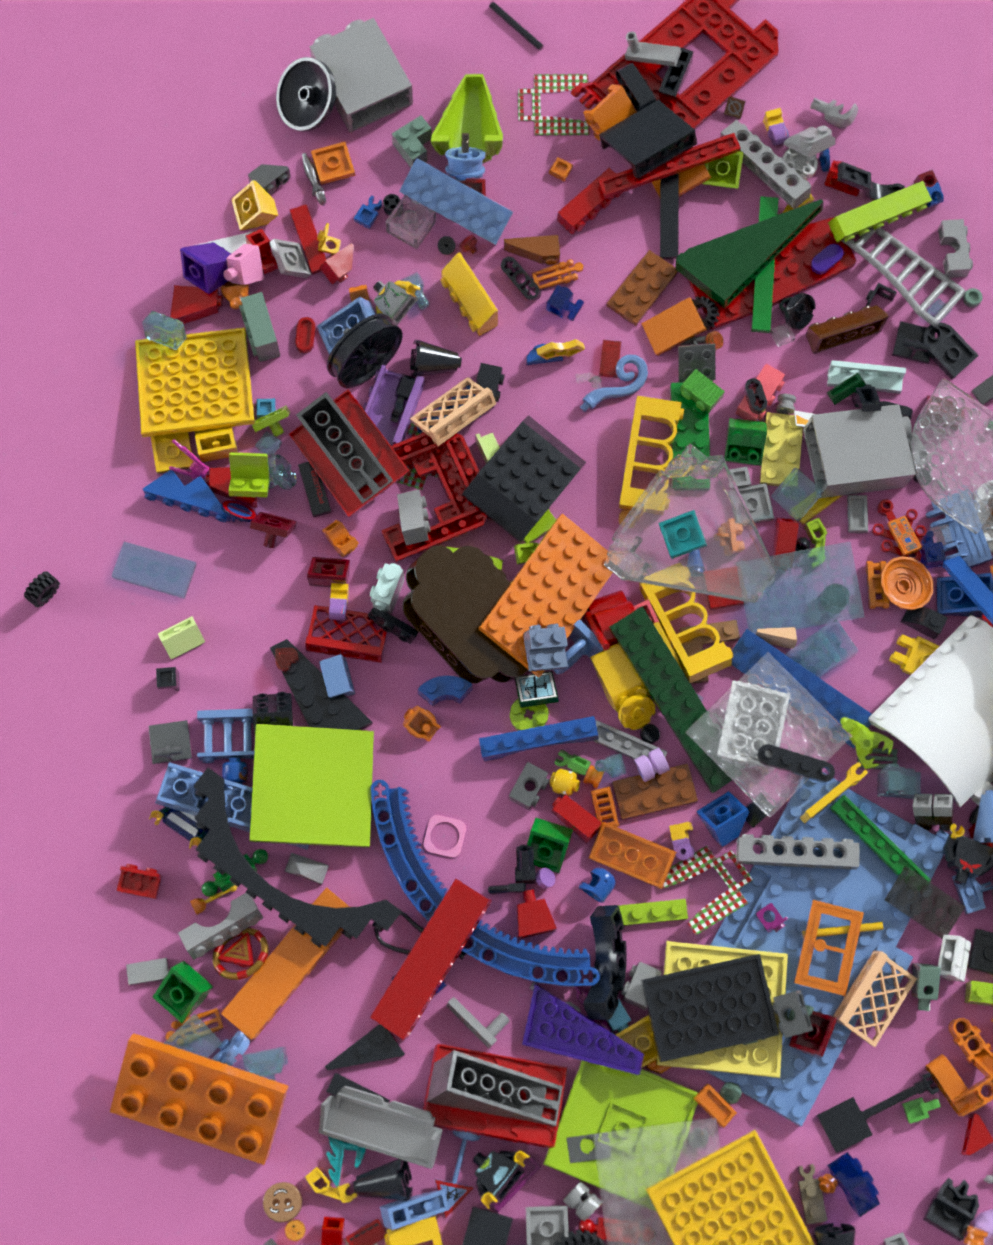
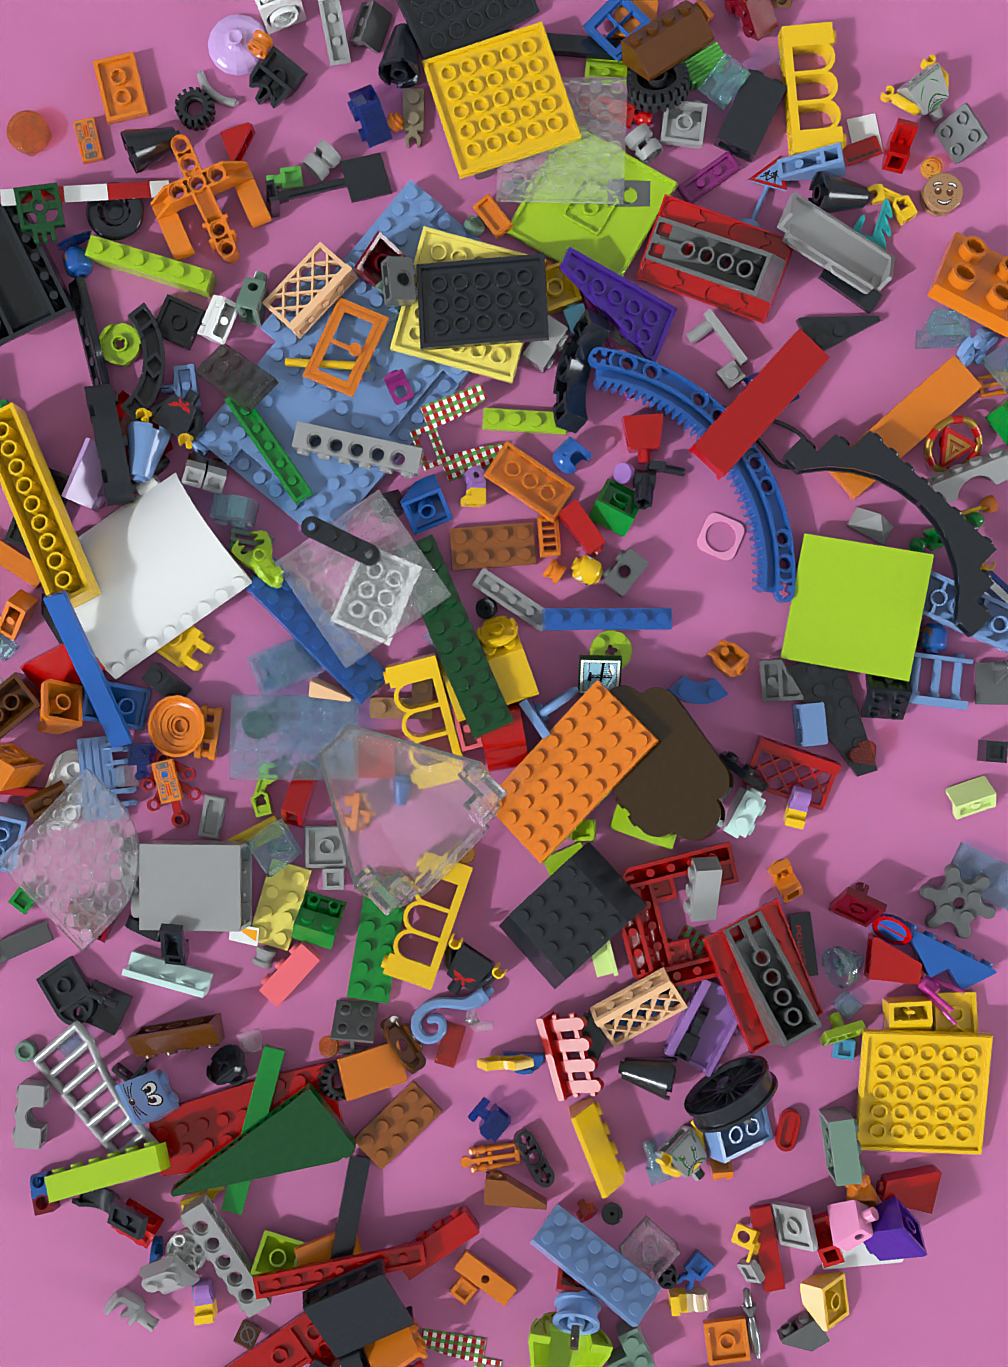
camera: 170 degrees left, 15 degrees up
(164, 330) = (949, 1160): clear light blue brick -> none
(182, 556) = (951, 889): none -> dark grey plate
(249, 474) = (879, 965): lime bracket -> none
(320, 218) = (751, 1271): none -> light grey plate
(327, 571) = (802, 845): dark red slope -> none
(338, 265) = (739, 1208): slope -> none
(365, 188) = (687, 1301): none -> leg
(372, 709) = (777, 682): none -> dark grey wing
(460, 989) = (730, 375): none -> light grey plate
(497, 1174) = (726, 181): black torso -> none
(512, 355) = (559, 1061): none -> fence
(535, 176) = (495, 1285): none -> orange tile
(545, 647) = (587, 707): sand blue plate -> none
(575, 763) = (571, 589): bright green plate -> none
(597, 631) = (524, 711): red bar -> none
(606, 423) = (469, 967): none -> black torso
(613, 765) = (533, 578): clear light blue pin -> none
(652, 764) = (492, 569): lavender wheel -> none
(660, 362) = (412, 1057): none -> reddish brown piece
(682, 534) = (411, 818): teal tile -> none
(701, 391) = (356, 985): bright green brick -> none
(759, 394) = (292, 969): black beam -> none
(805, 544) = (280, 790): black hinge -> none
(827, 259) = (181, 1123): dark purple tile -> none
(846, 388) = (193, 962): dark green tile -> none
(851, 780) = (306, 502): yellow tile -> none
(859, 273) = (148, 1097): none -> medium blue slope
(890, 1131) = (321, 160): none -> light grey wheel

